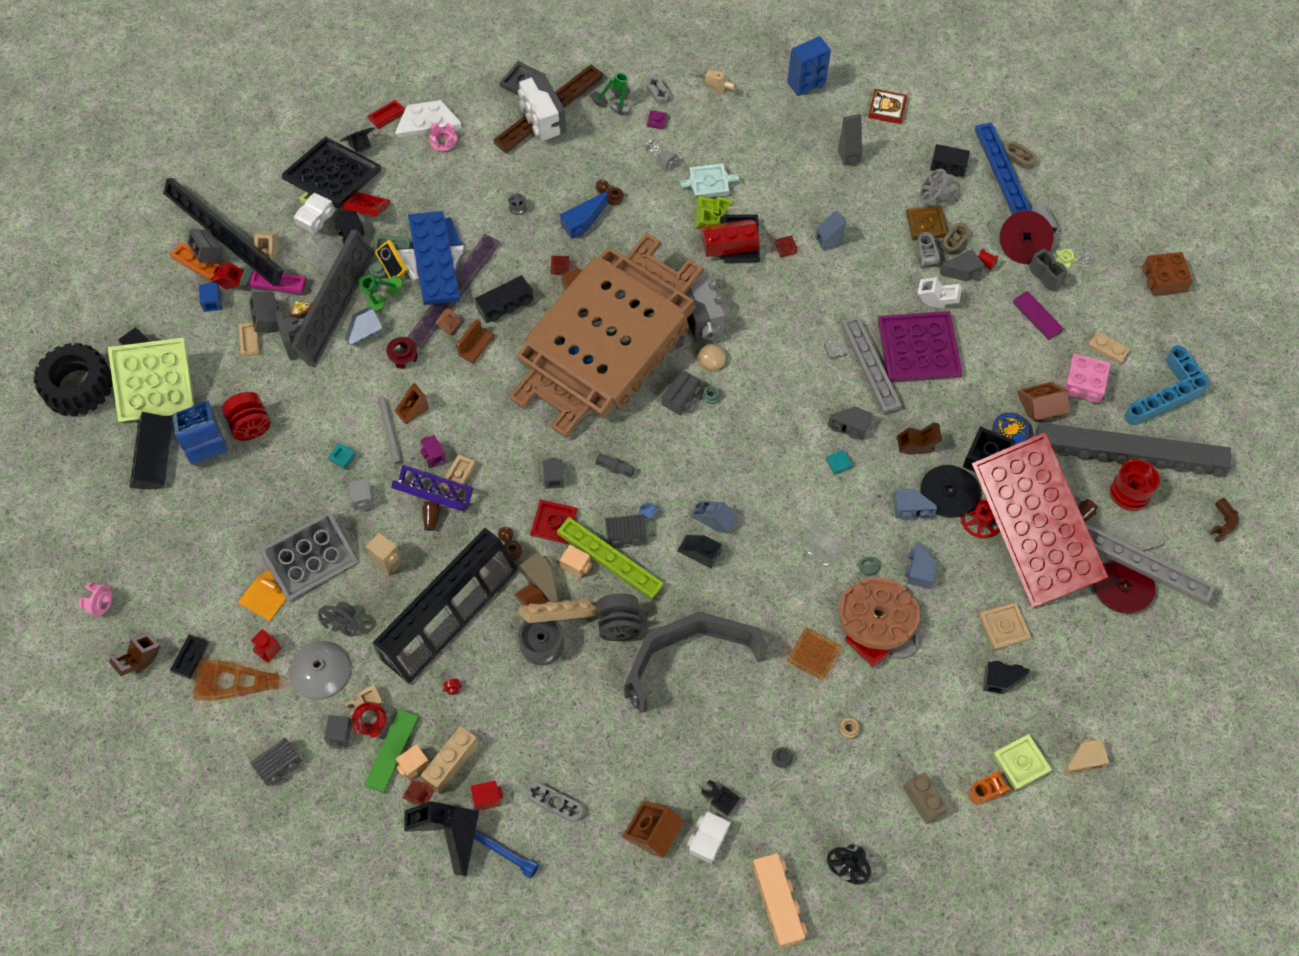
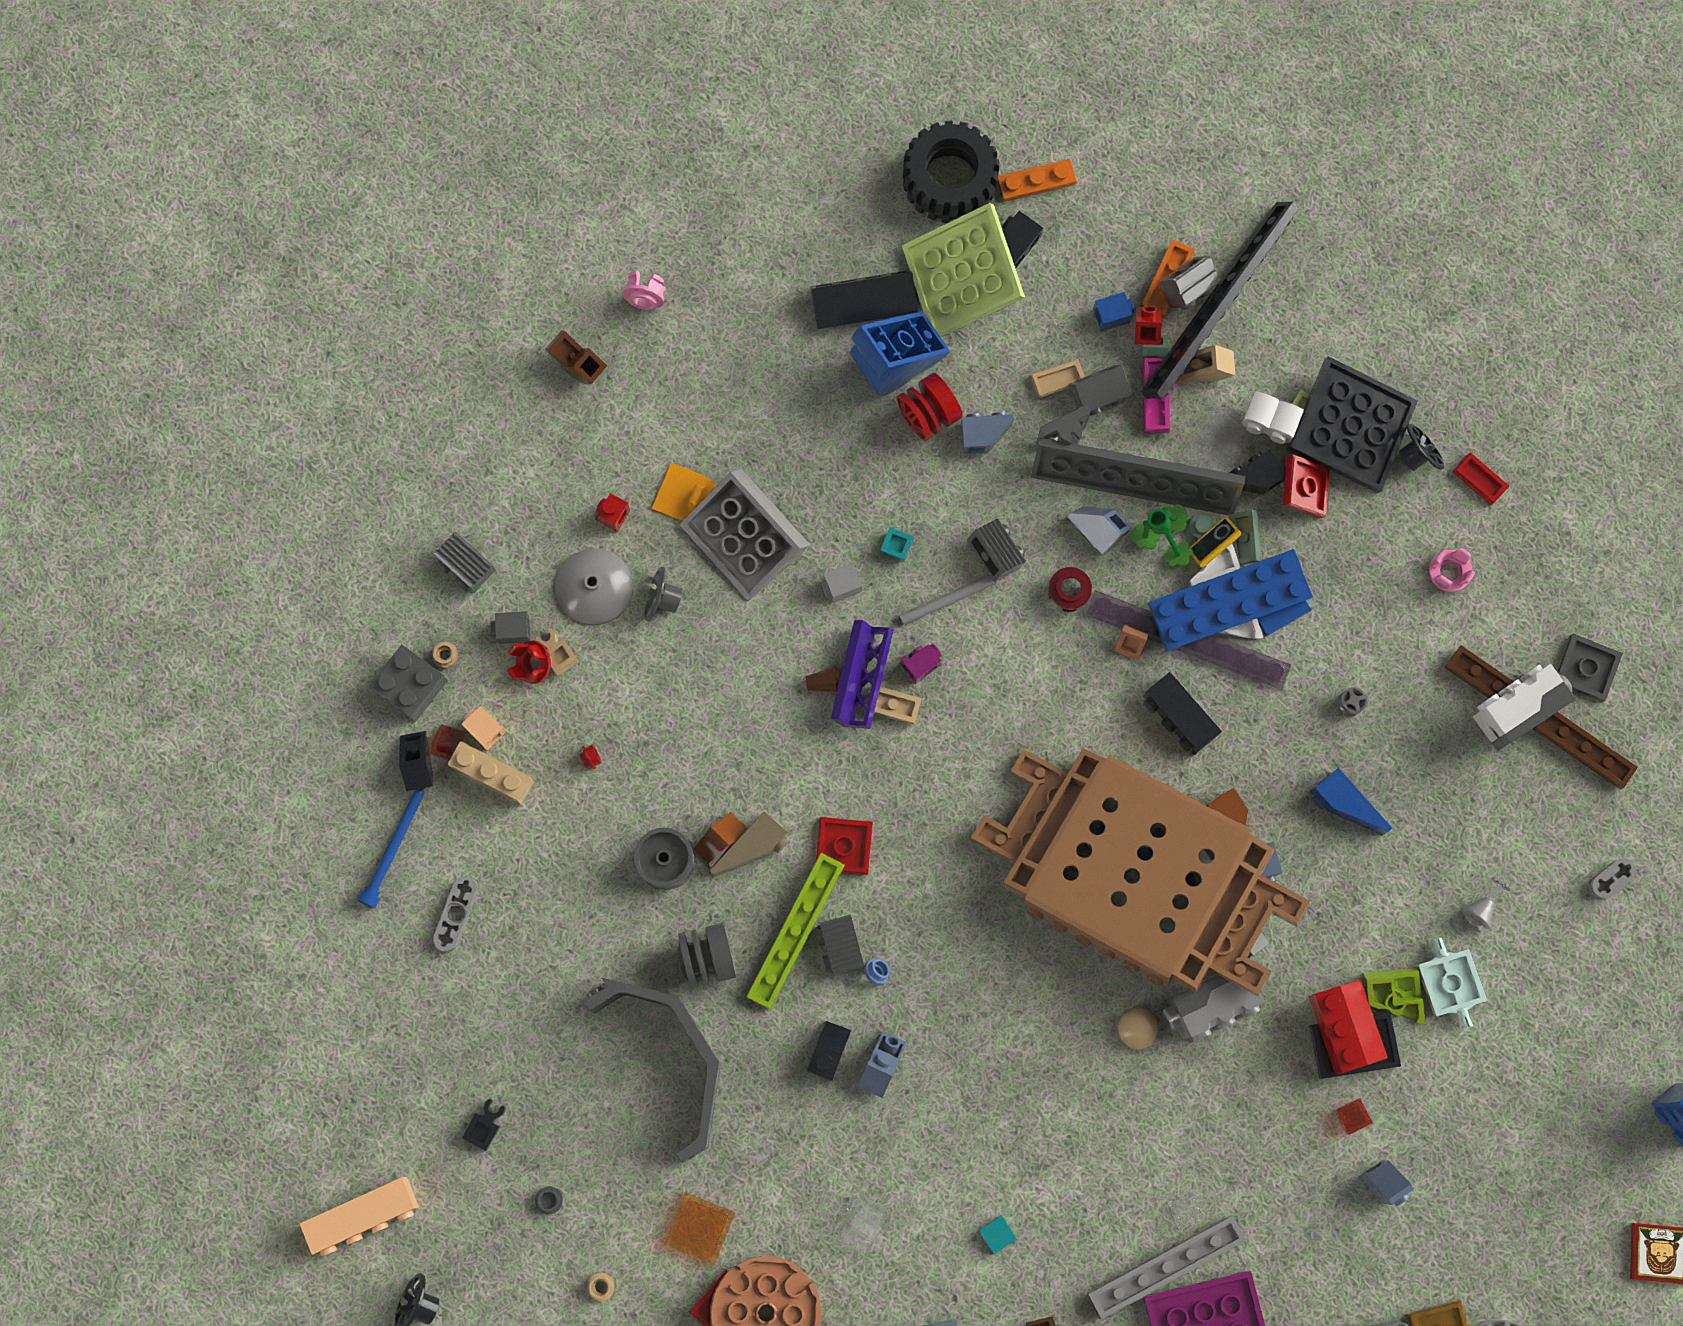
camera: 80 degrees right, 15 degrees up
(98, 329) = (1036, 180): none -> orange plate
(189, 656) = (587, 423): black plate -> none
(208, 677) = (559, 454): clear orange plate -> none
(274, 389) = (983, 432): none -> sand blue slope
(300, 309) = (1118, 437): tile -> none
(347, 781) = (441, 647): none -> tan plate
(362, 391) = (996, 549): none -> dark grey brick
(364, 815) = (408, 683): none -> dark grey brick
(384, 554) = (753, 632): tan brick -> none
(392, 748) = (498, 699): bright green tile -> none
(412, 404) = (988, 620): dark orange slope -> none
(421, 116) = (1486, 536): white wing -> none
(445, 606) = (689, 728): black window -> none
(460, 832) = (400, 803): black slope -> none
(474, 342) = (1104, 686): dark orange panel -> none
(486, 795) = (451, 827): red brick -> none
(506, 534) = (812, 785): reddish brown plate -> none
(553, 473) = (913, 832): dark grey brick -> none
(557, 611) = (700, 873): tan plate -> none
(559, 264) = (1256, 783): clear red plate -> none
(575, 561) = (785, 885): light nougat brick -> none
(603, 186) = (1408, 823): reddish brown plate -> none
(614, 465) = (940, 915): dark grey pin -> none
(620, 89) = (1598, 818): plant -> none
(653, 828) = (433, 1044): dark orange slope -> none
(657, 119) = (1554, 886): magenta plate -> none
(681, 392) = (1070, 992): dark grey brick -> none
(709, 837) = (430, 1117): white brick -> none
(711, 390) = (1083, 1029): sand green plate -> none
(717, 81) = (1646, 972): tan piece -> none
(851, 140) = (1560, 1198): dark grey slope -> none
(851, 421) = (1063, 1248): dark grey slope -> none
(870, 569) = (835, 1296): sand green piece -> none

